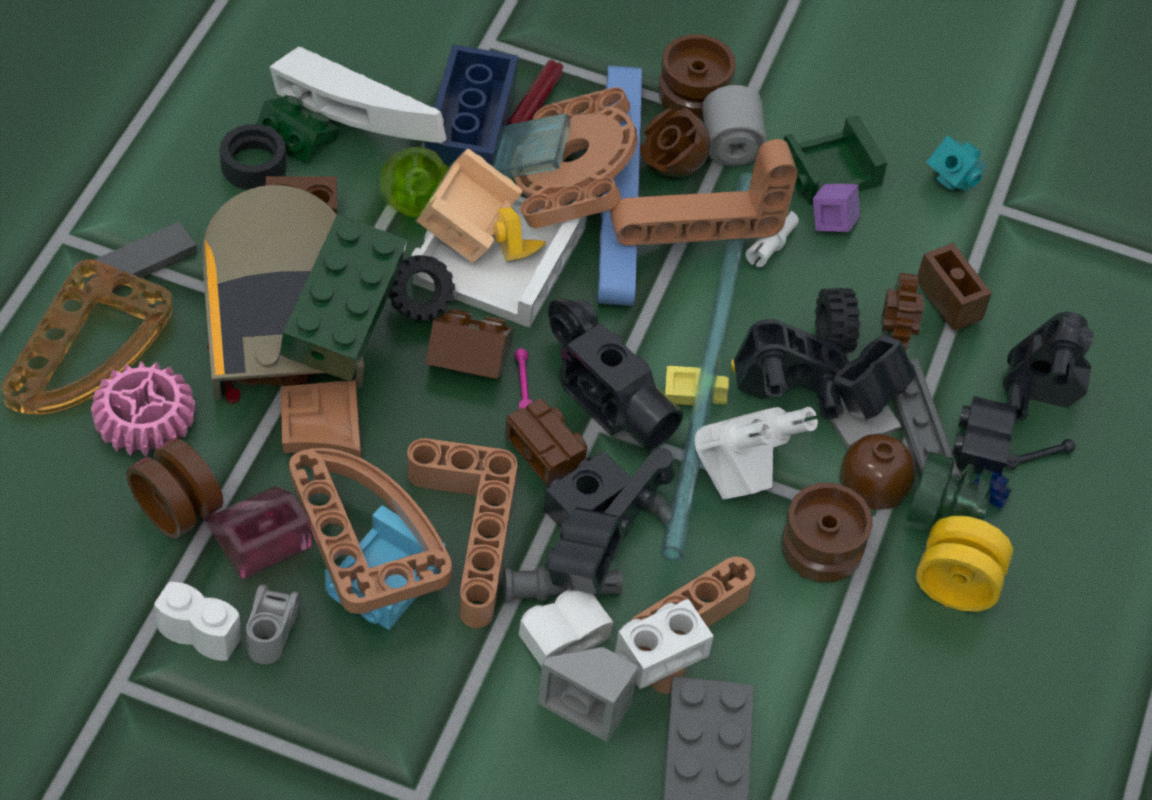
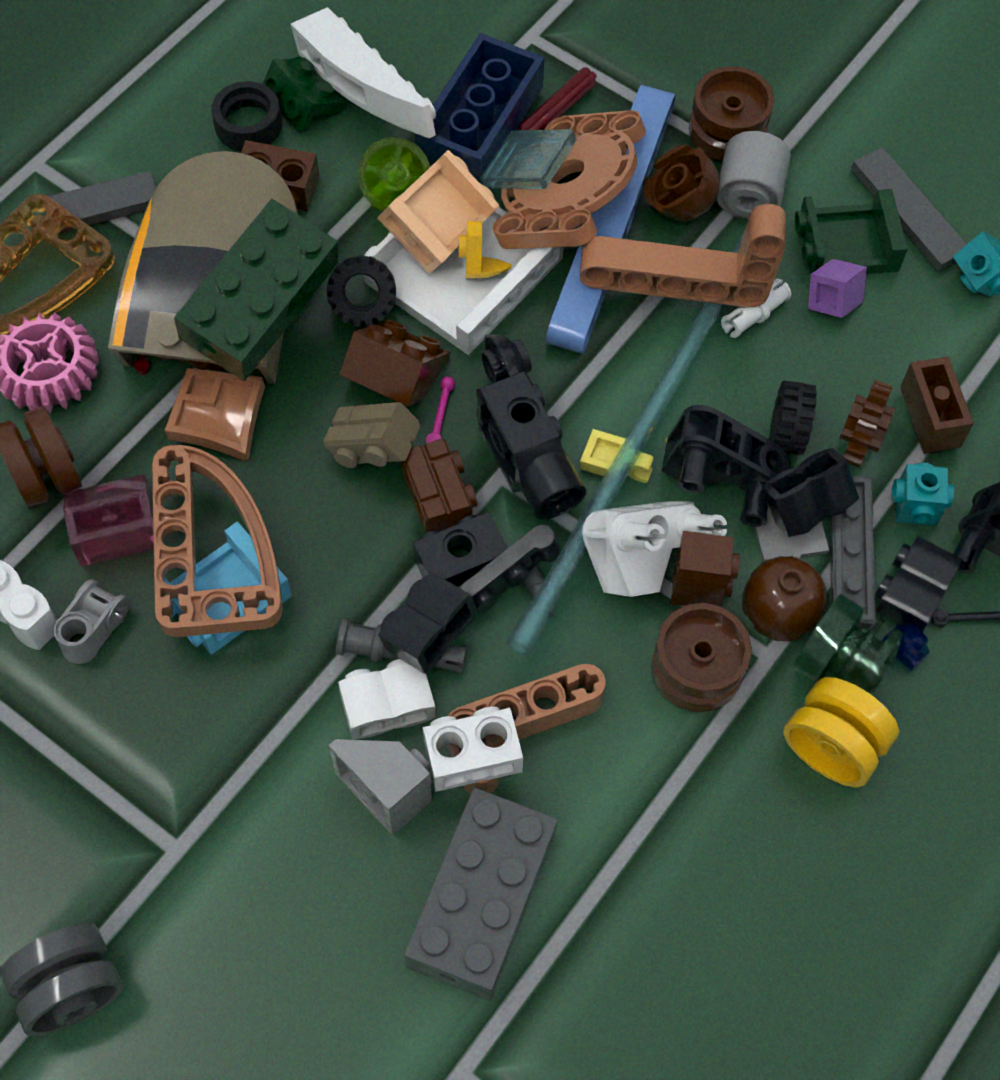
camera: 20 degrees right, 10 degrees up
(475, 407) = (371, 434): none -> dark tan brick
(488, 520) = (341, 559): nougat beam -> none
(804, 457) = (704, 569): none -> reddish brown brick
(892, 141) = (917, 214): none -> dark grey tile
(965, 362) = (922, 494): none -> teal brick

